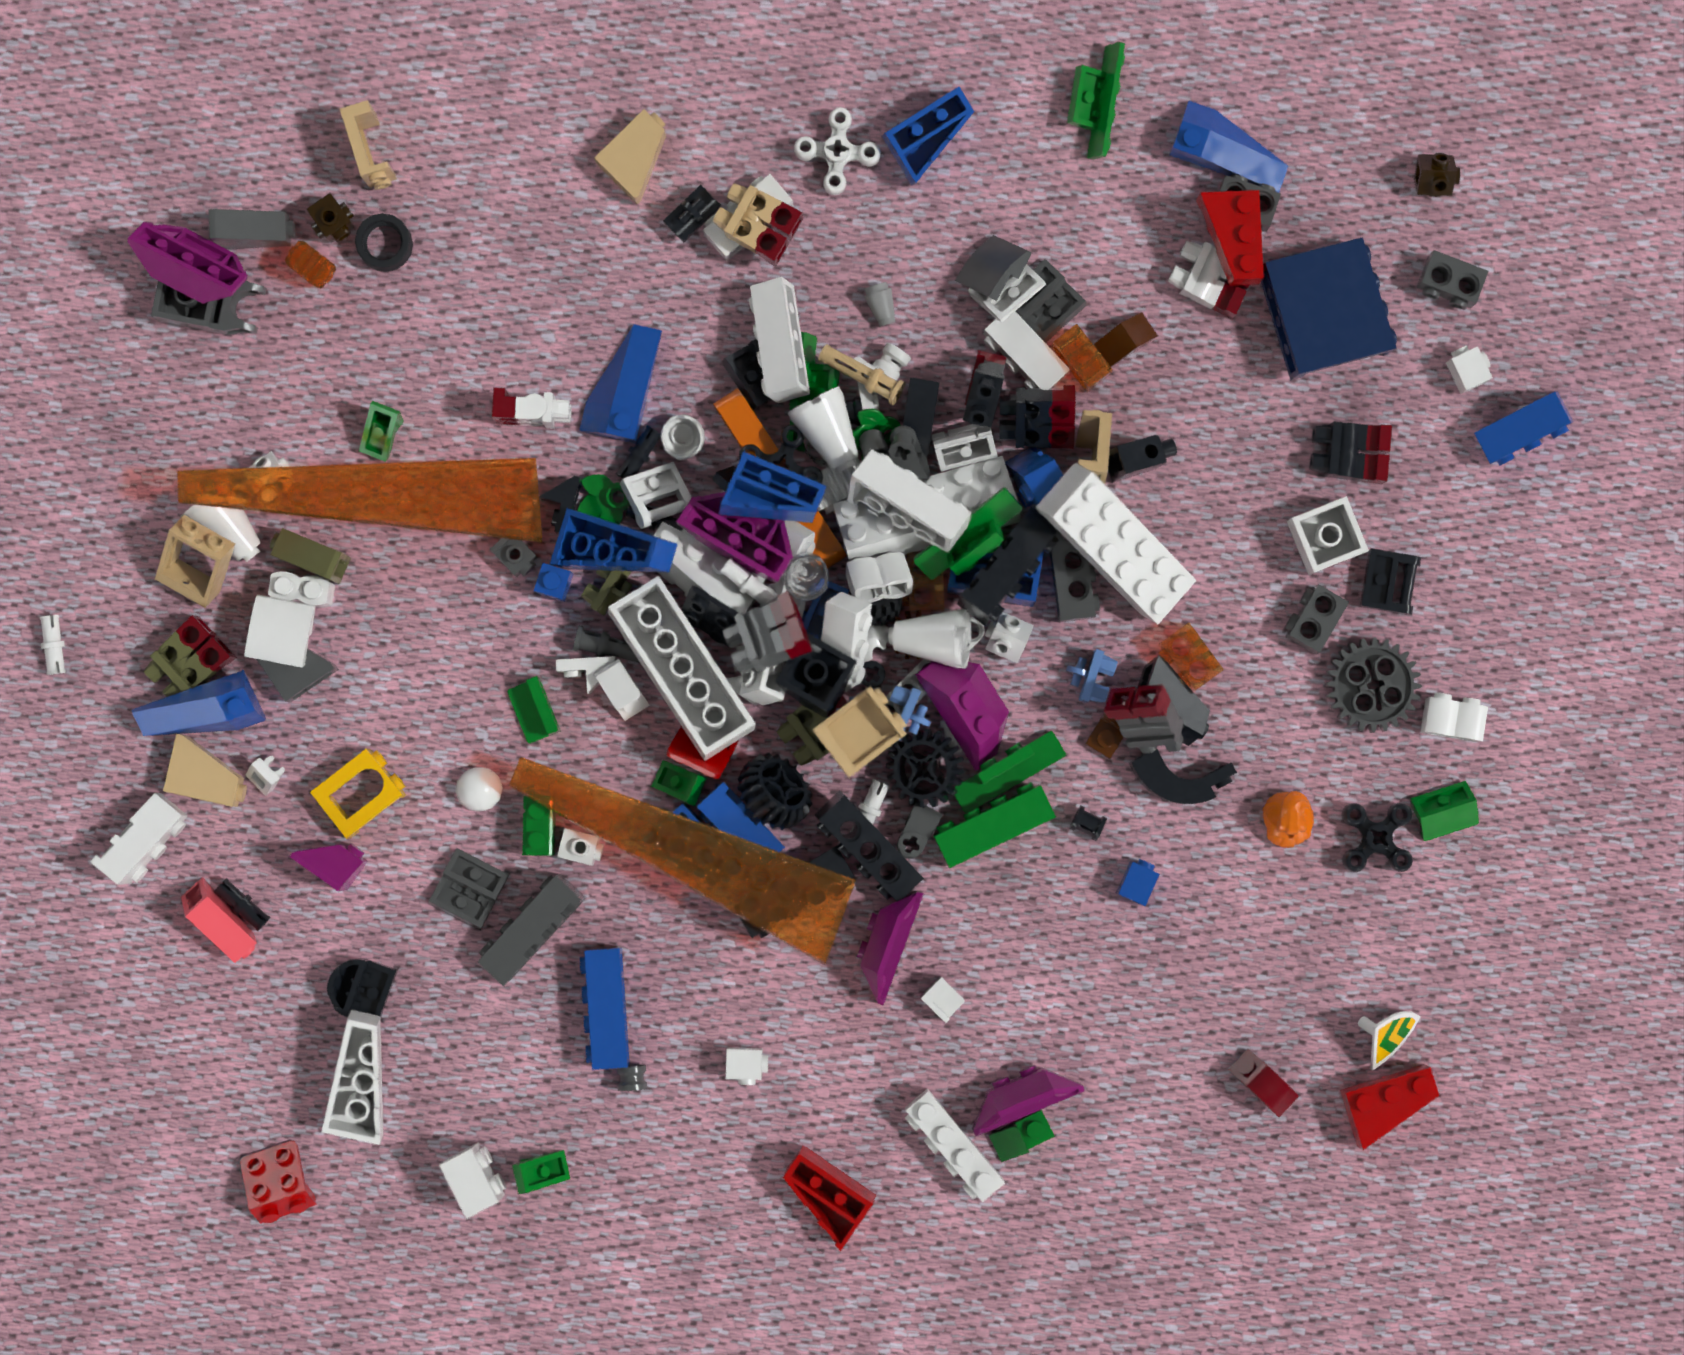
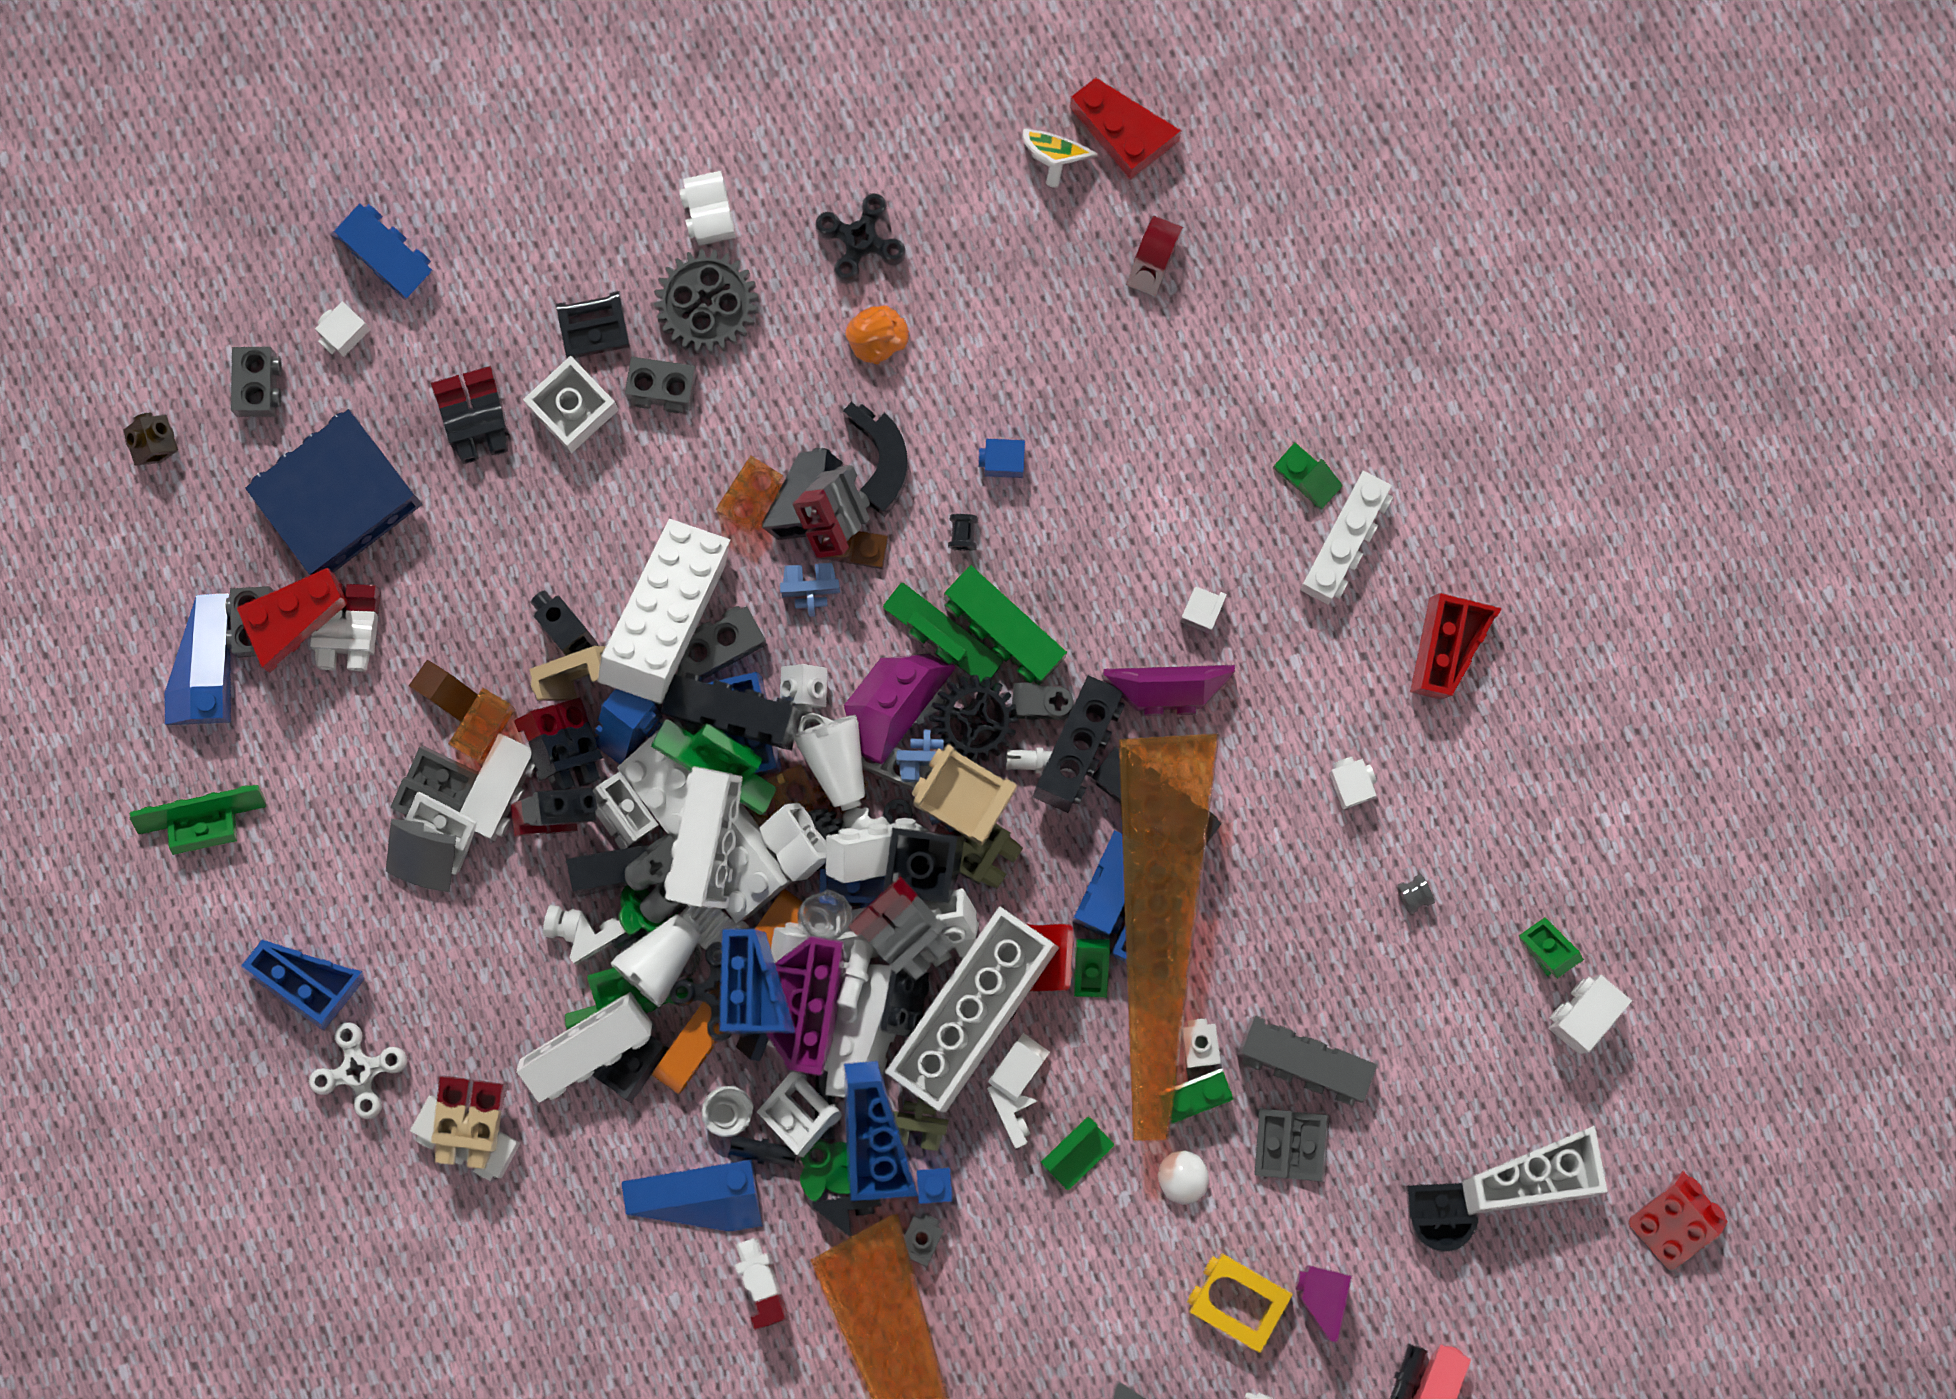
camera: 110 degrees left, 5 degrees down
(602, 644) = (979, 1107): dark grey pin -> none
(606, 1008) = (1354, 948): blue brick -> none
(633, 154) = (443, 1287): tan slope -> none
(692, 213) = (484, 1197): black hips -> none
(774, 791) = (1060, 862): black gear -> none
(876, 377) = (582, 987): tan pin -> none
(881, 303) = (502, 960): light grey cone -> none
(1022, 1096) = (1269, 489): magenta wedge -> none
(1445, 810) = (805, 182): green panel -> none

